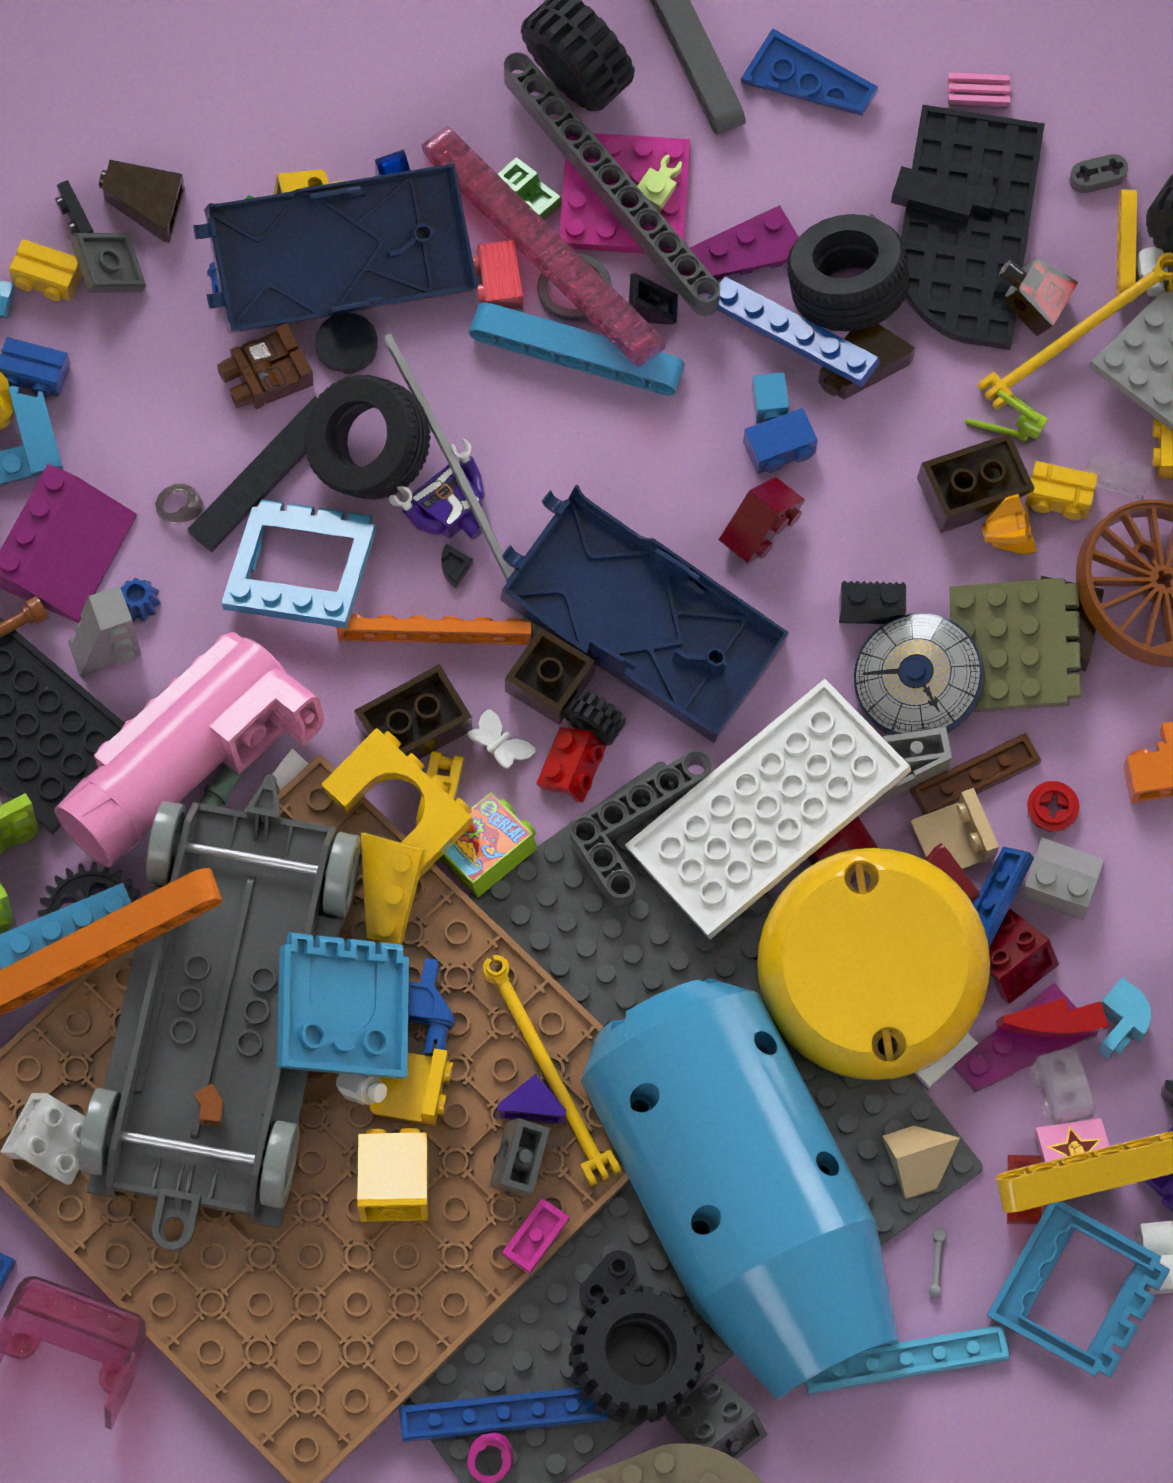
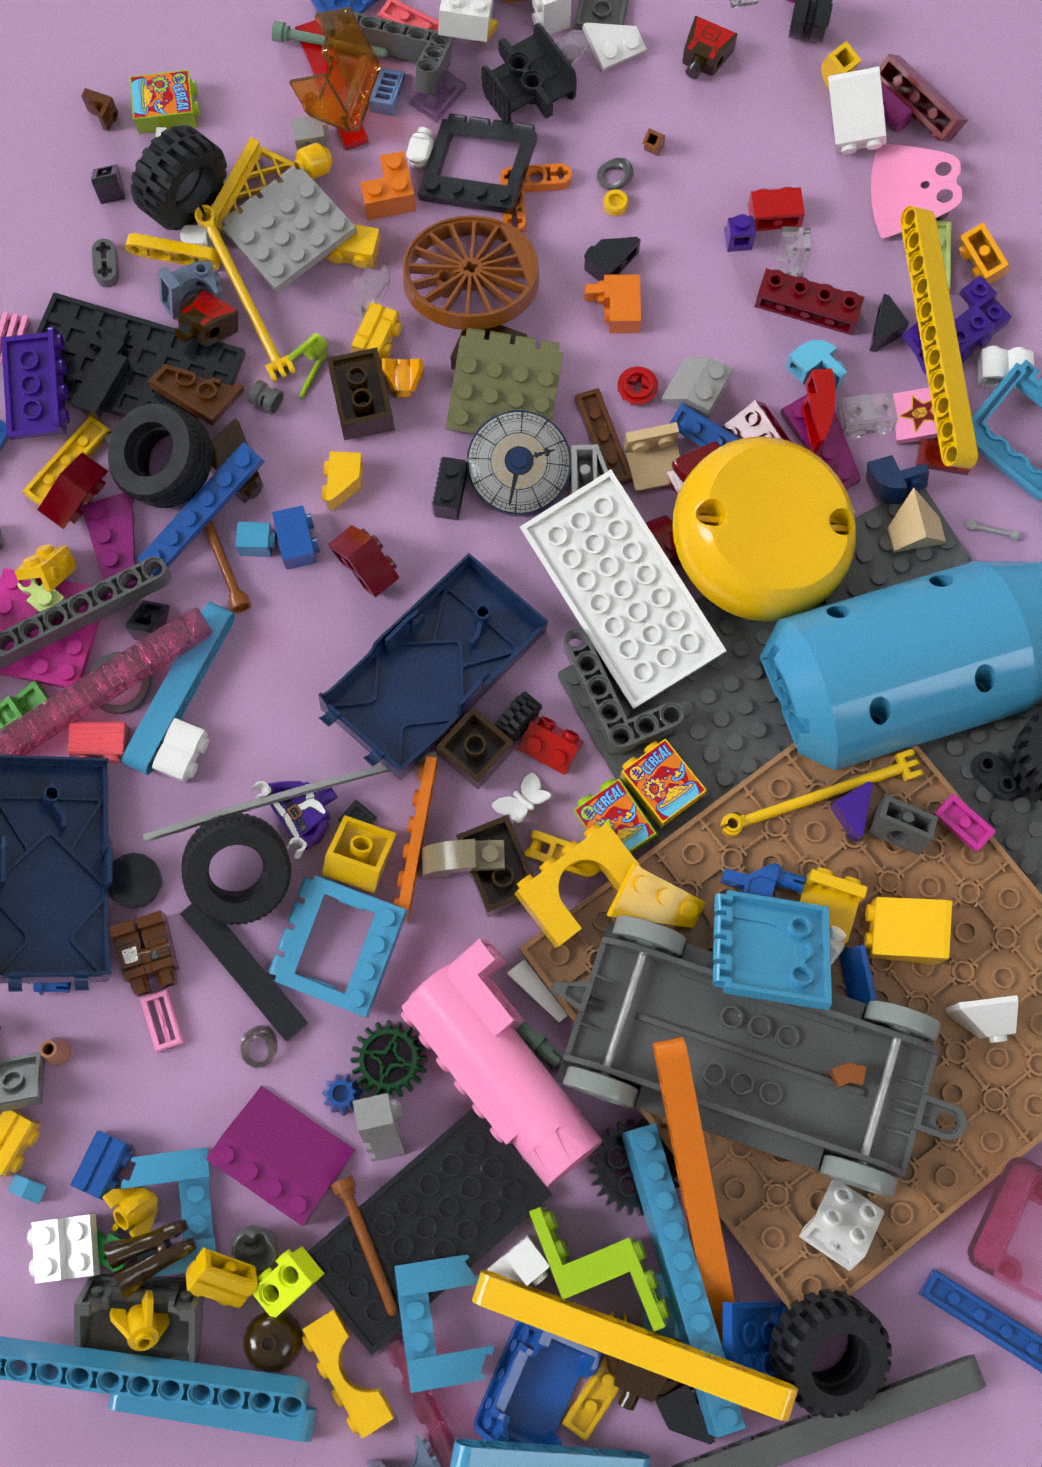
camera: 80 degrees left, 5 degrees up
(147, 298) = (61, 1051): none -> nougat cone
(155, 632) = (366, 1052): none -> dark green gear
(199, 411) = (173, 1019): none -> bright pink tile
(300, 1274) = (987, 1017): none -> white slope
(334, 1130) = (857, 974): none -> blue slope
(407, 569) = (358, 854): none -> yellow slope
(413, 677) = (457, 856): none -> dark tan arch
(501, 363) = (180, 751): none -> white brick
(538, 888) = (662, 782): none -> brick
(692, 394) = (238, 599): none -> dark orange piece
(695, 182) = (49, 564): none -> yellow bracket
(792, 190) = (72, 489): none -> dark red brick
(833, 180) = (86, 440): none -> yellow tile
(864, 482) = (343, 476): none -> yellow slope
(916, 124) = (34, 385): none -> dark purple bracket
(939, 299) = (200, 396): none -> reddish brown wing
(955, 376) = (265, 397): none -> dark grey wheel
(972, 1124) = (892, 484): none -> dark blue brick
(1087, 265) = (185, 281): none -> sand blue tile

